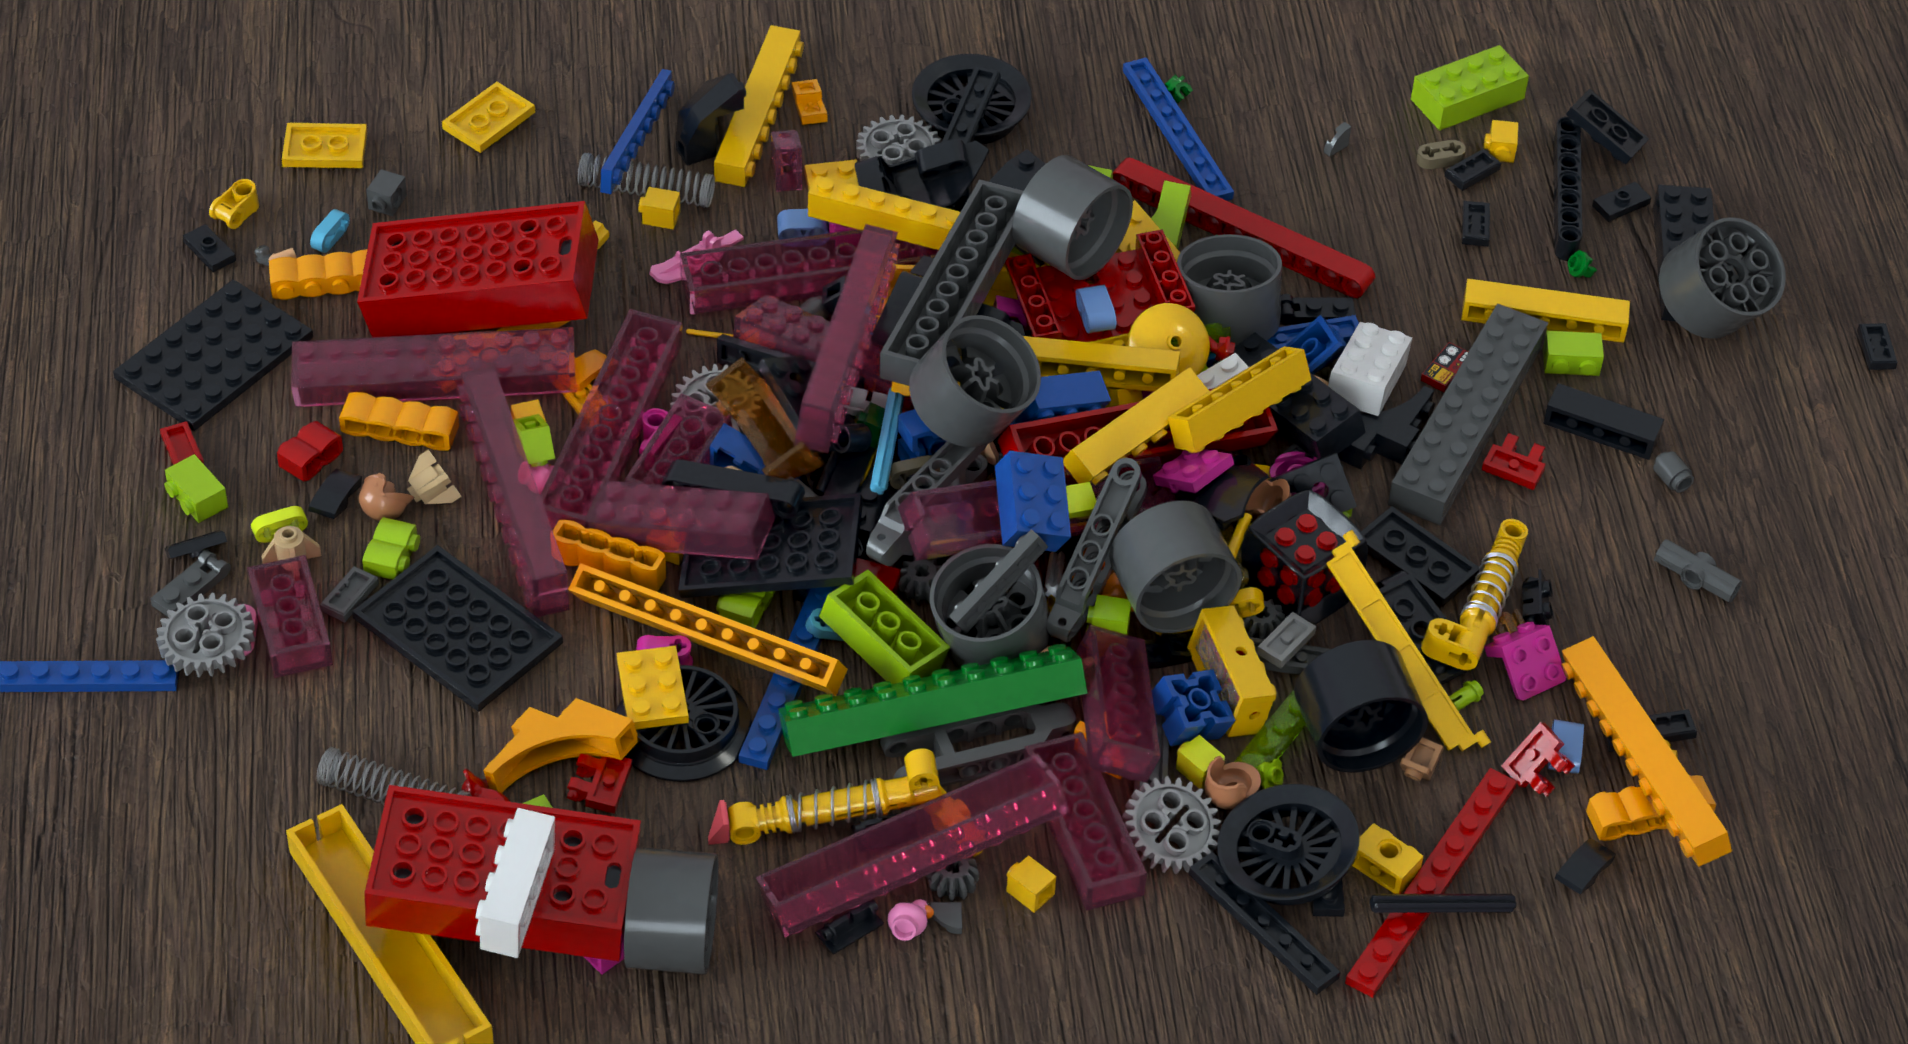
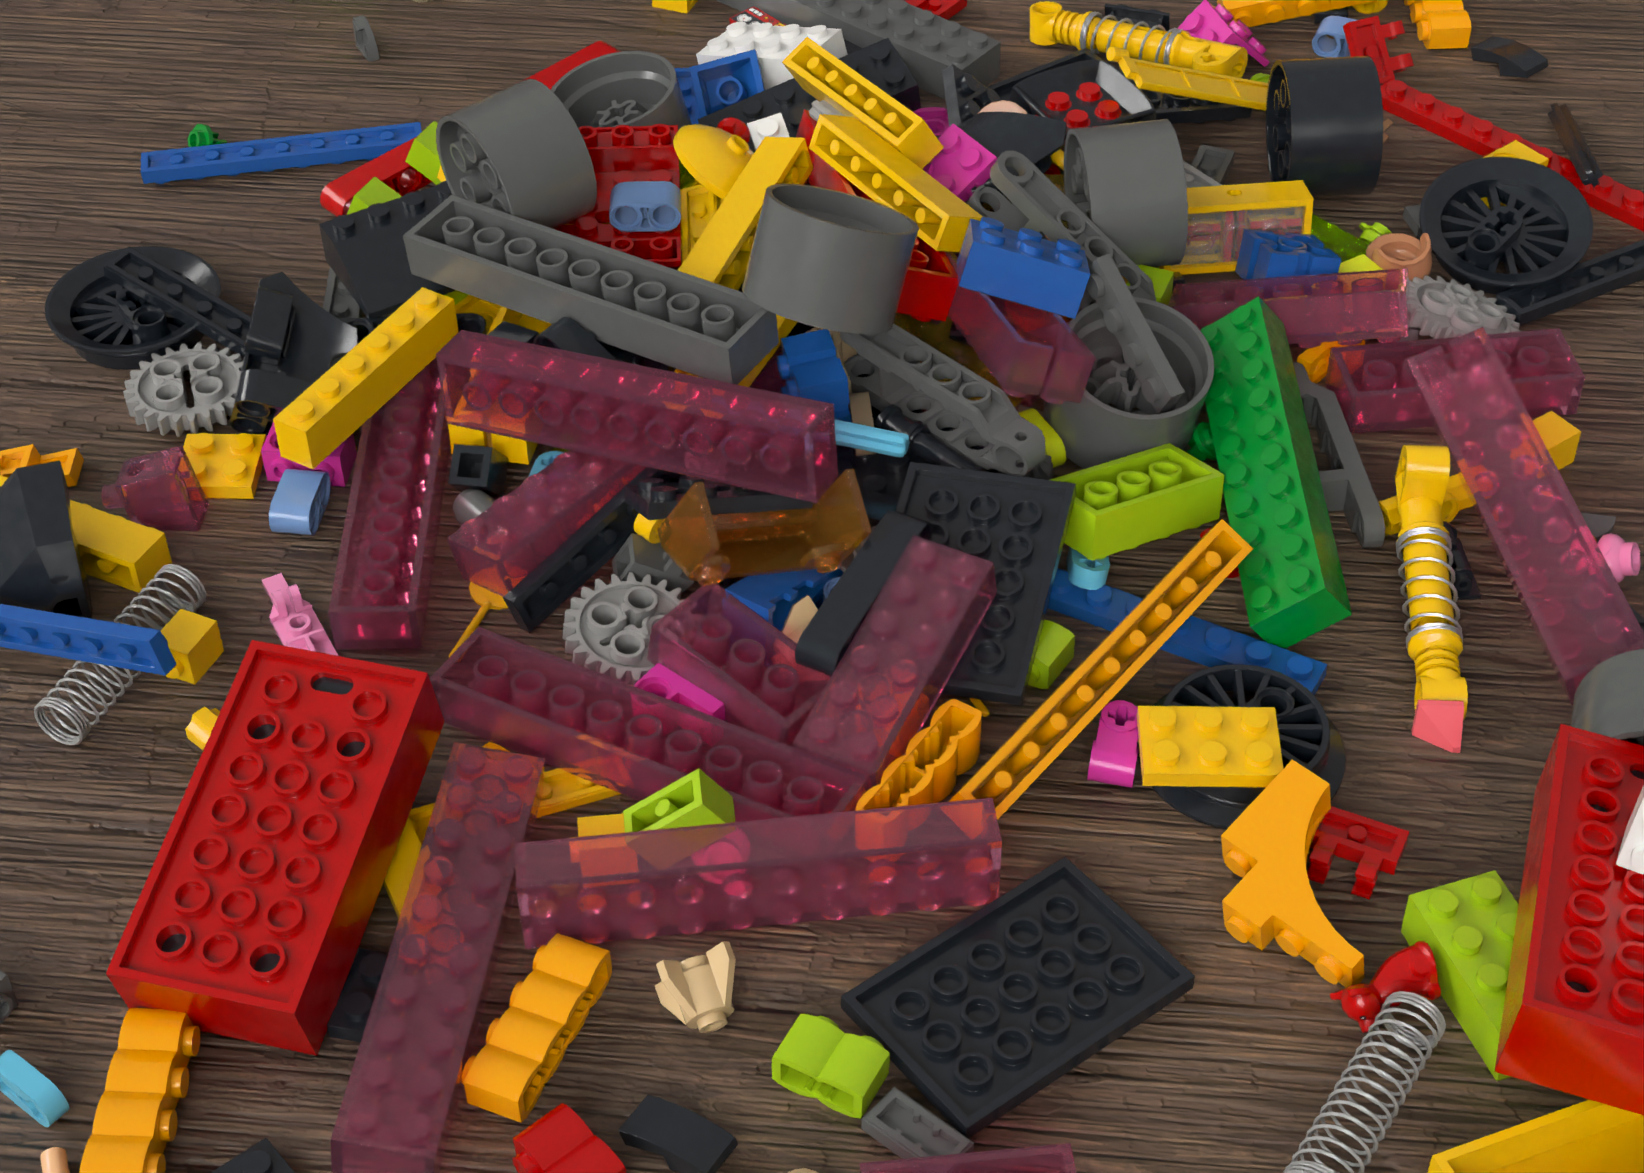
camera: 75 degrees left, 5 degrees down
(380, 500) = (727, 1058): nougat helmet -> none

